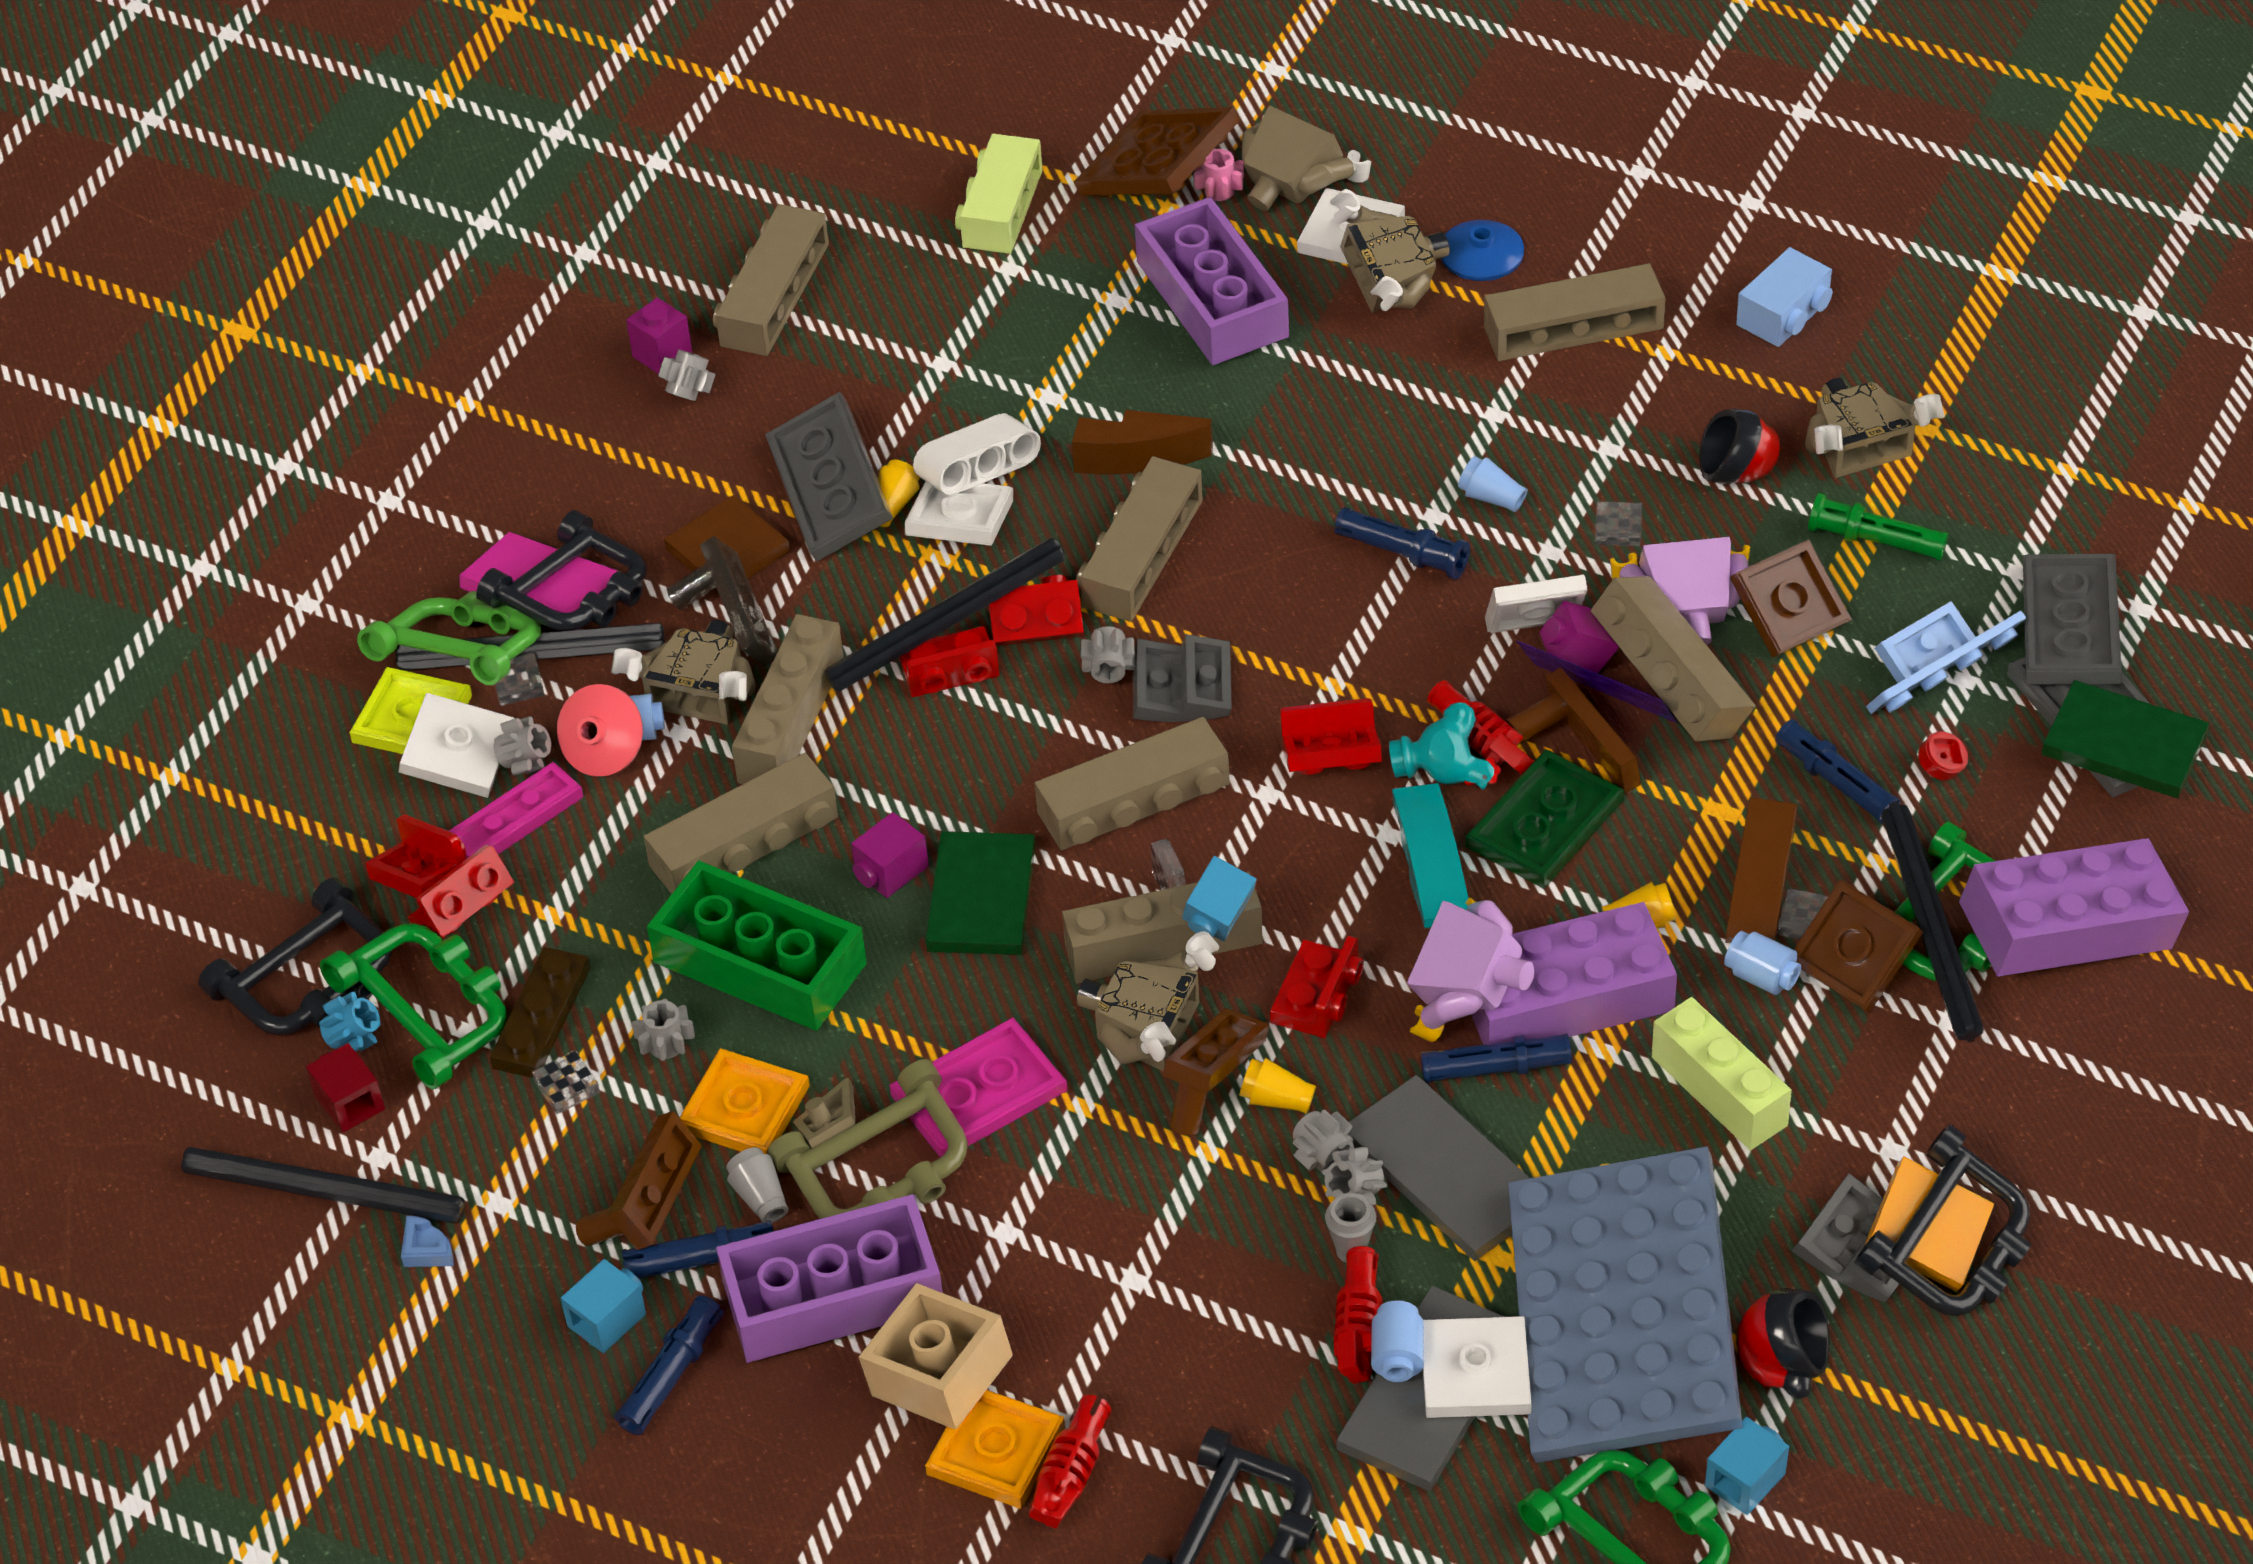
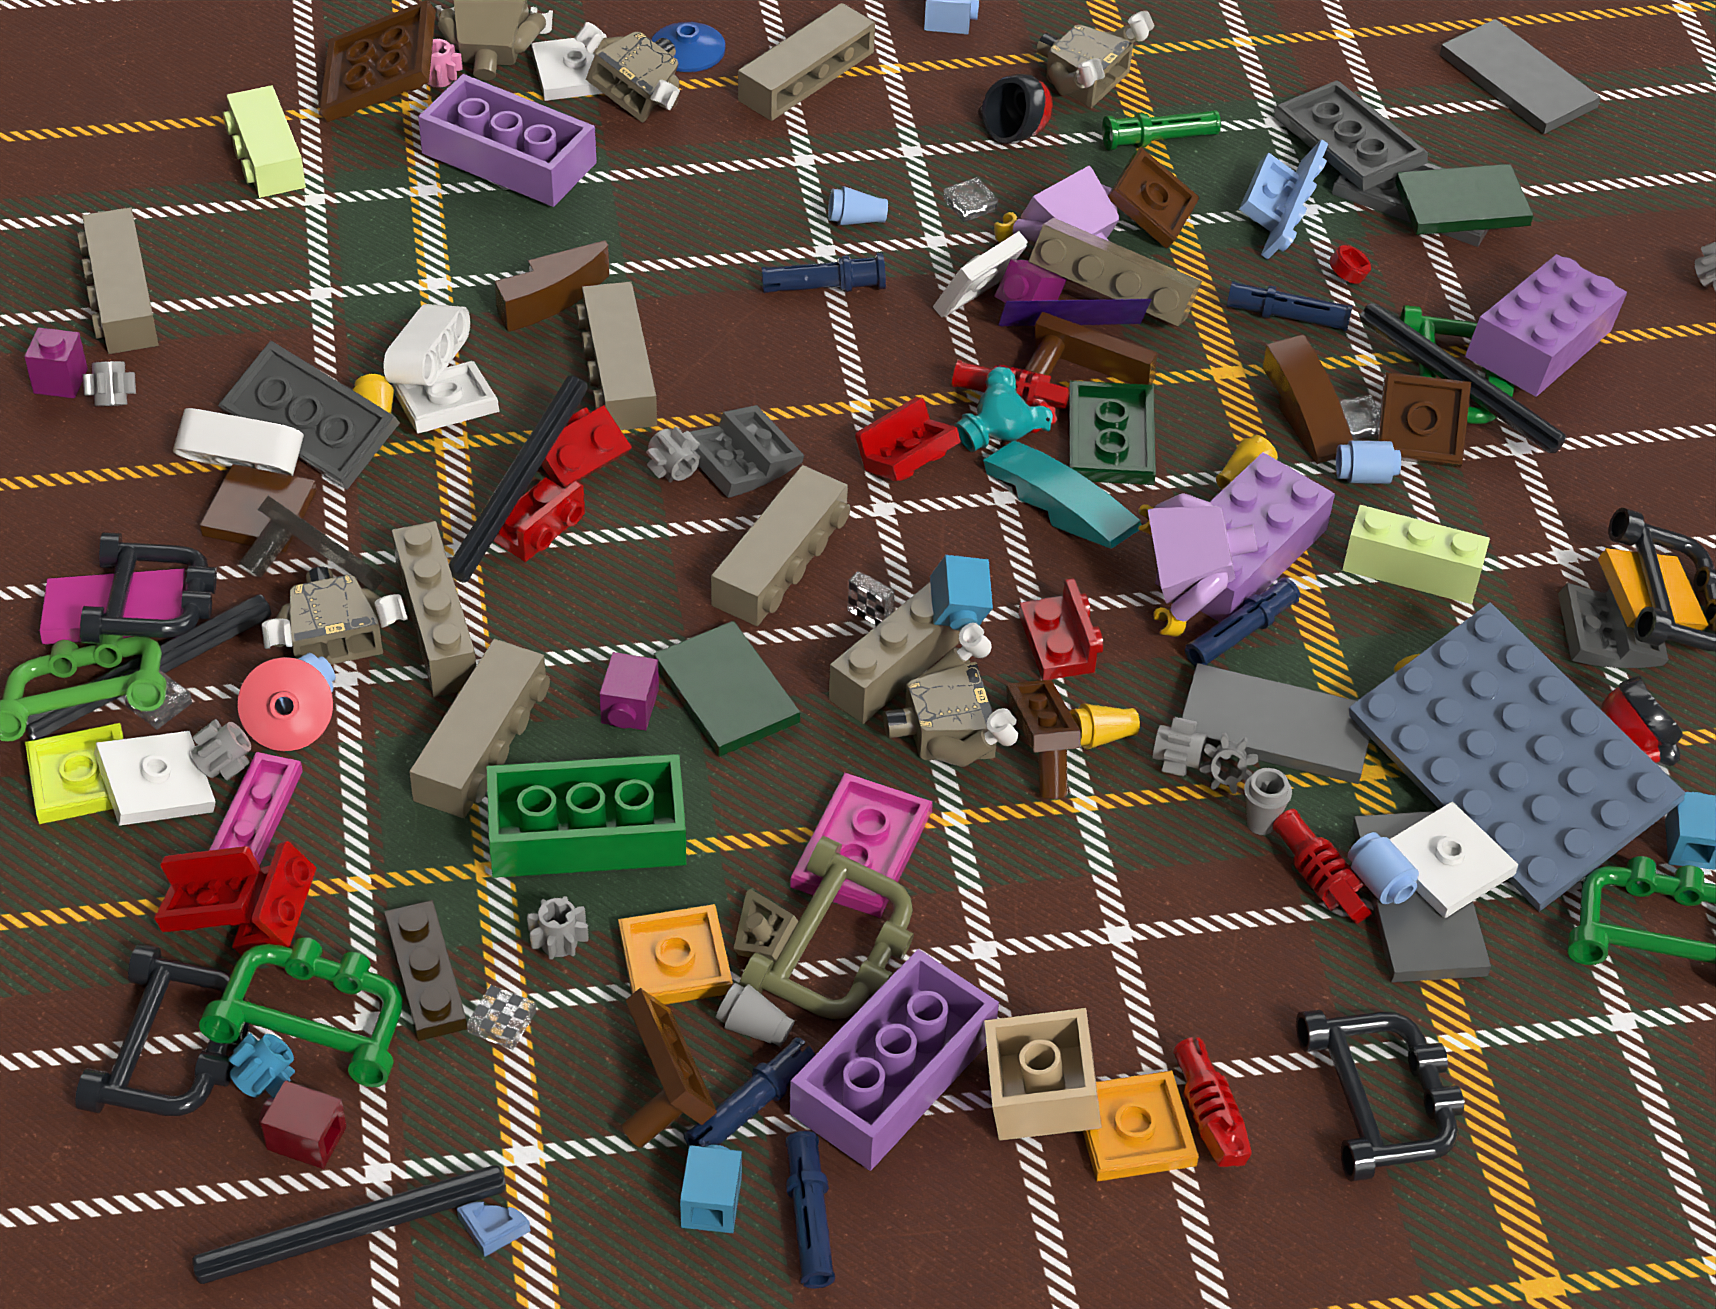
camera: 40 degrees left, 0 degrees up
(747, 477) = (237, 440): none -> white beam

